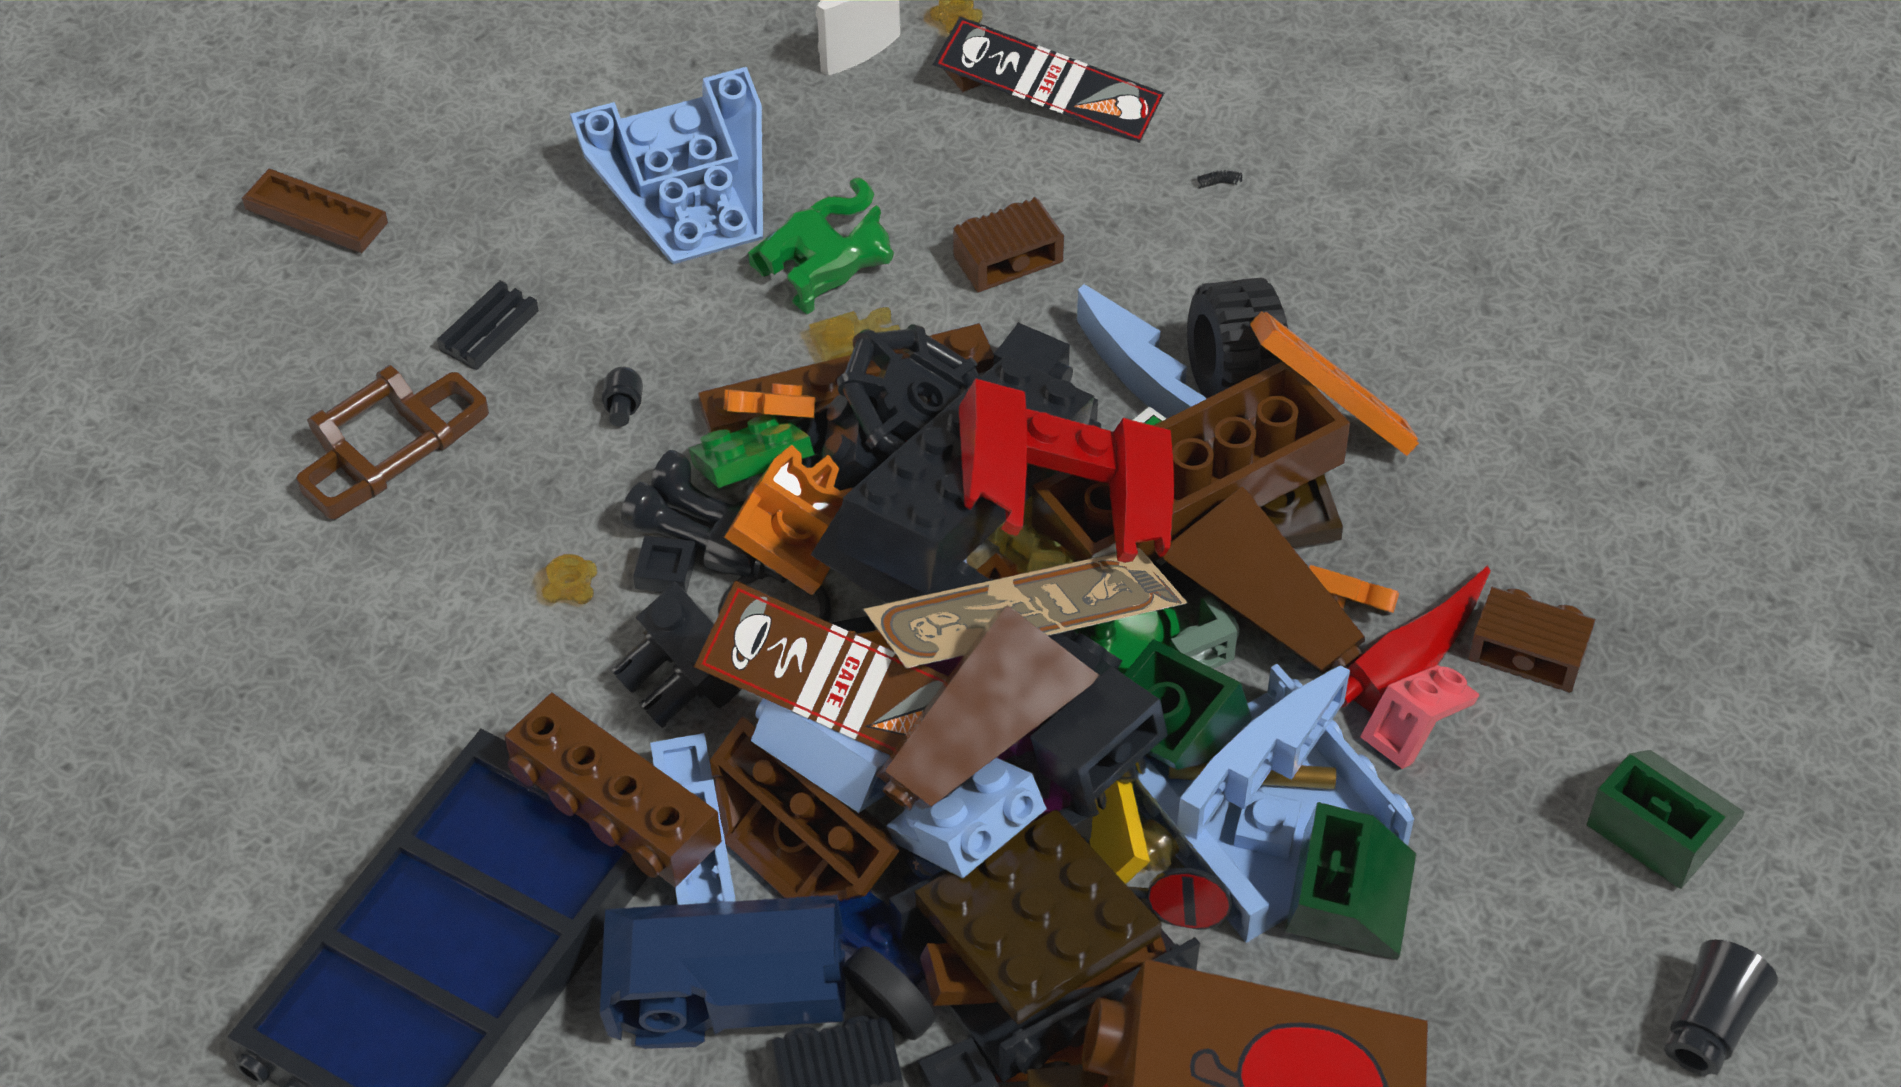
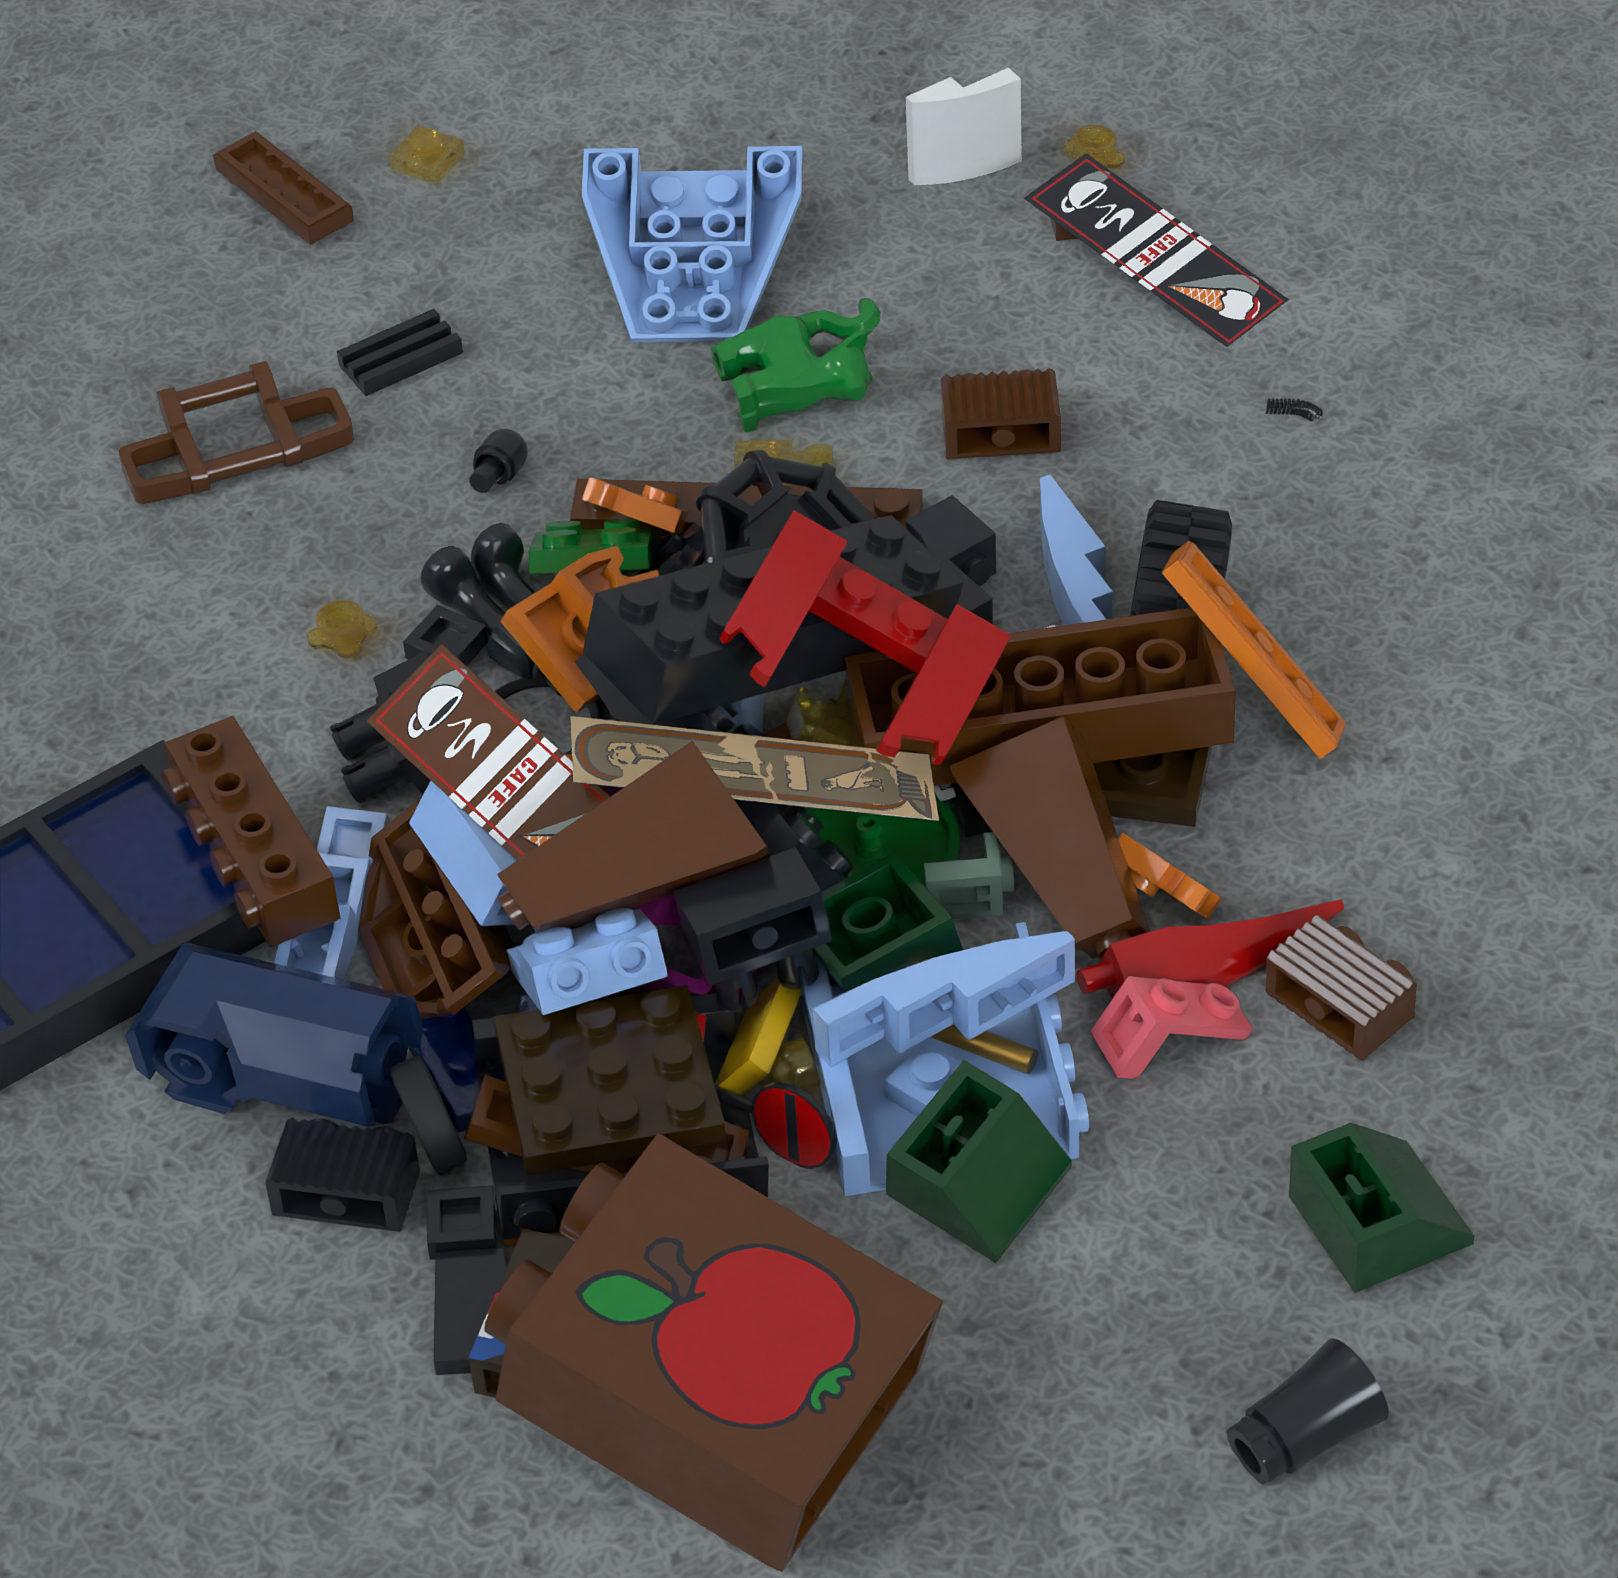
camera: 25 degrees right, 5 degrees down
(420, 151) = (427, 154): none -> clear yellow plate

